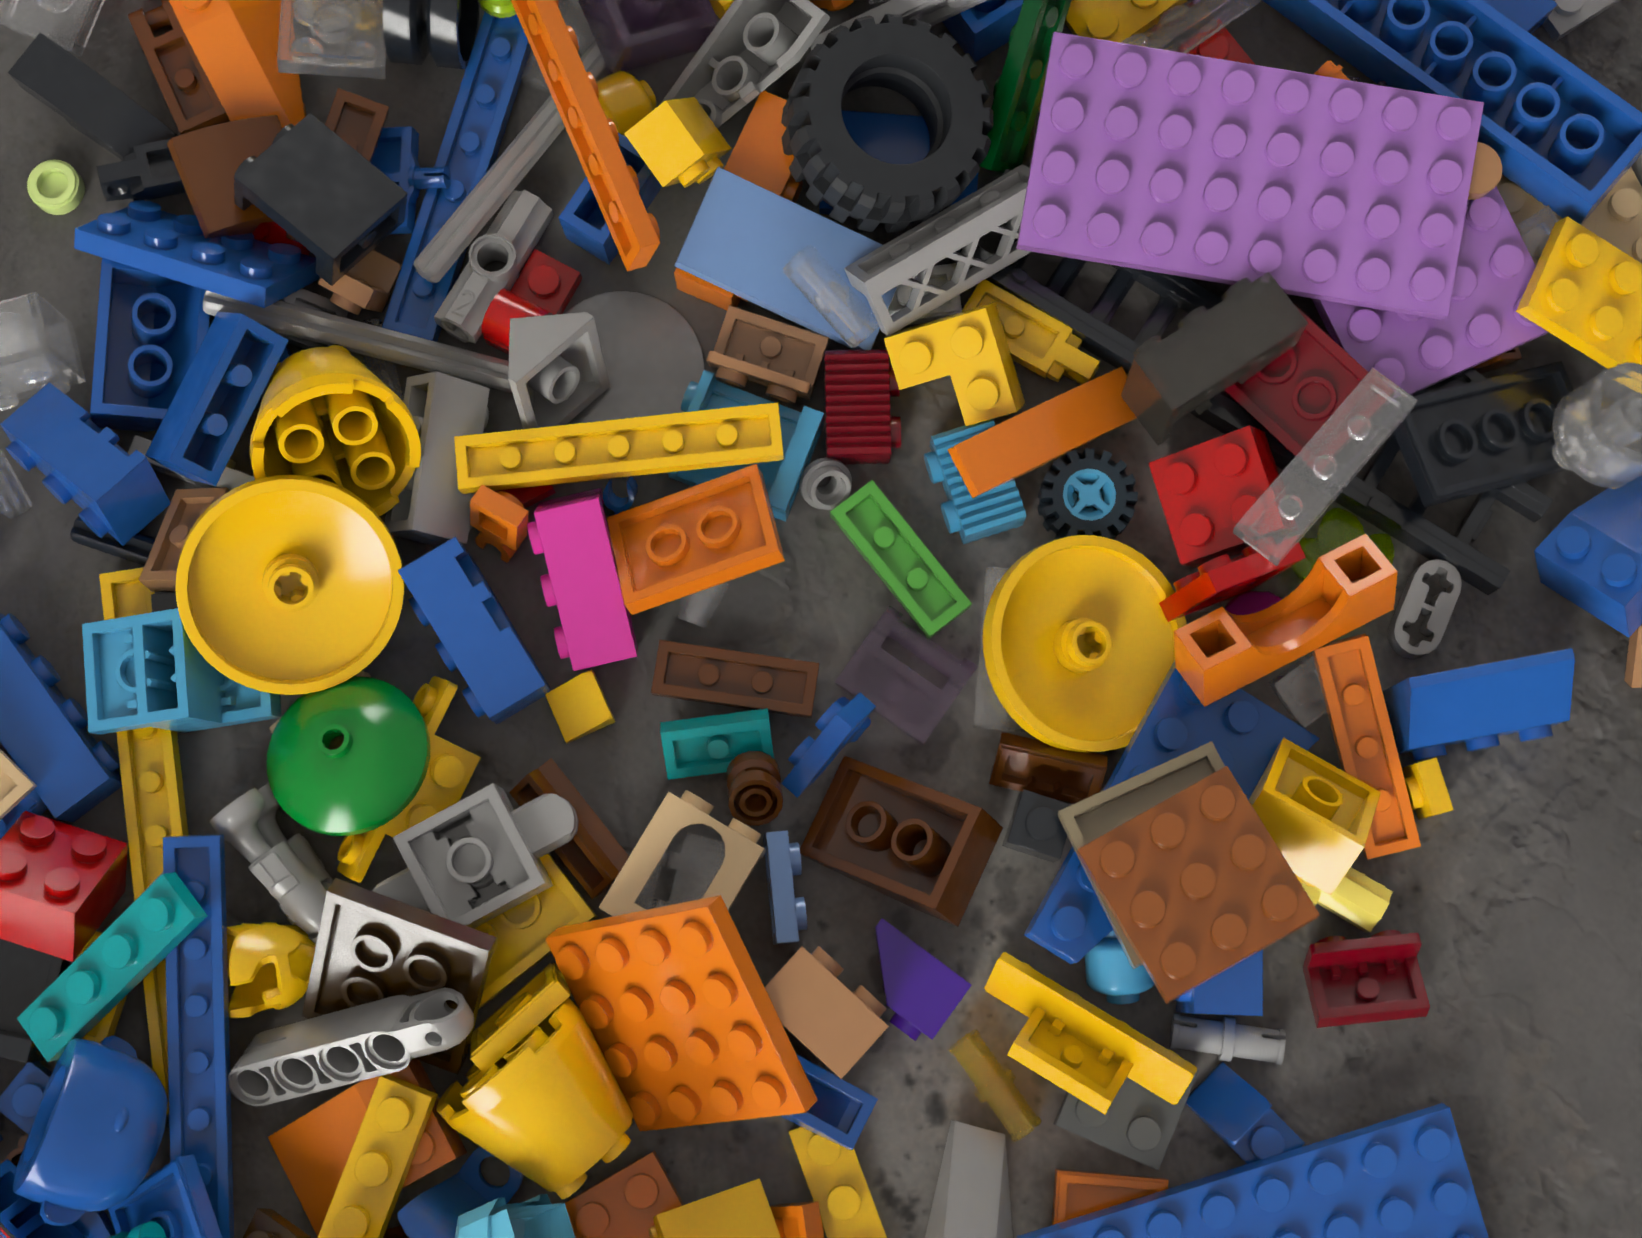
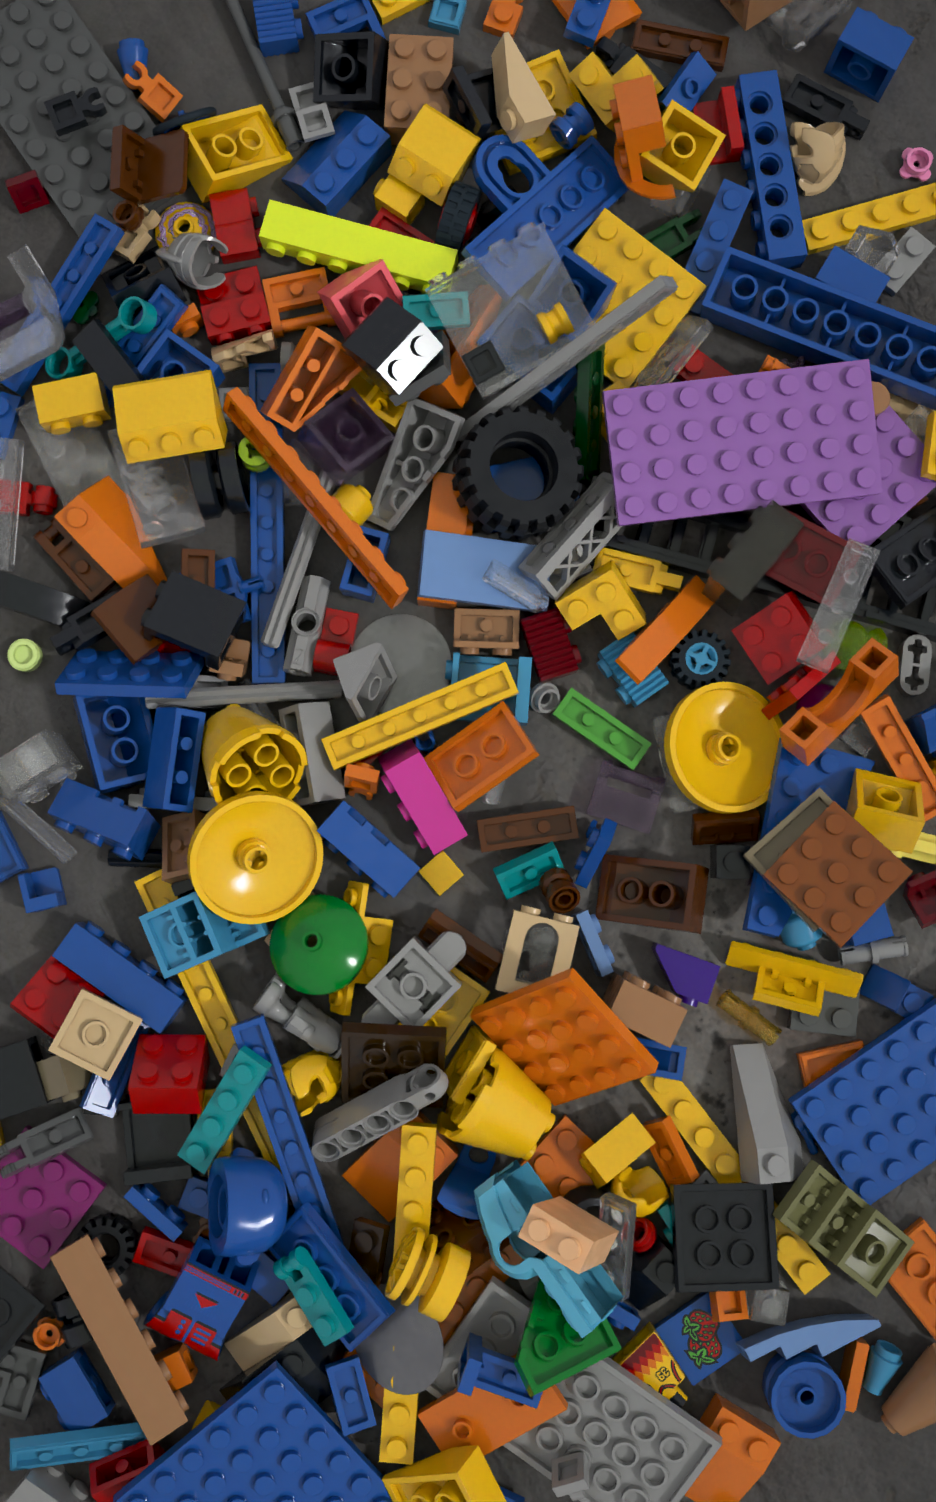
camera: 20 degrees left, 5 degrees up
(679, 142) = (399, 522): yellow brick -> none

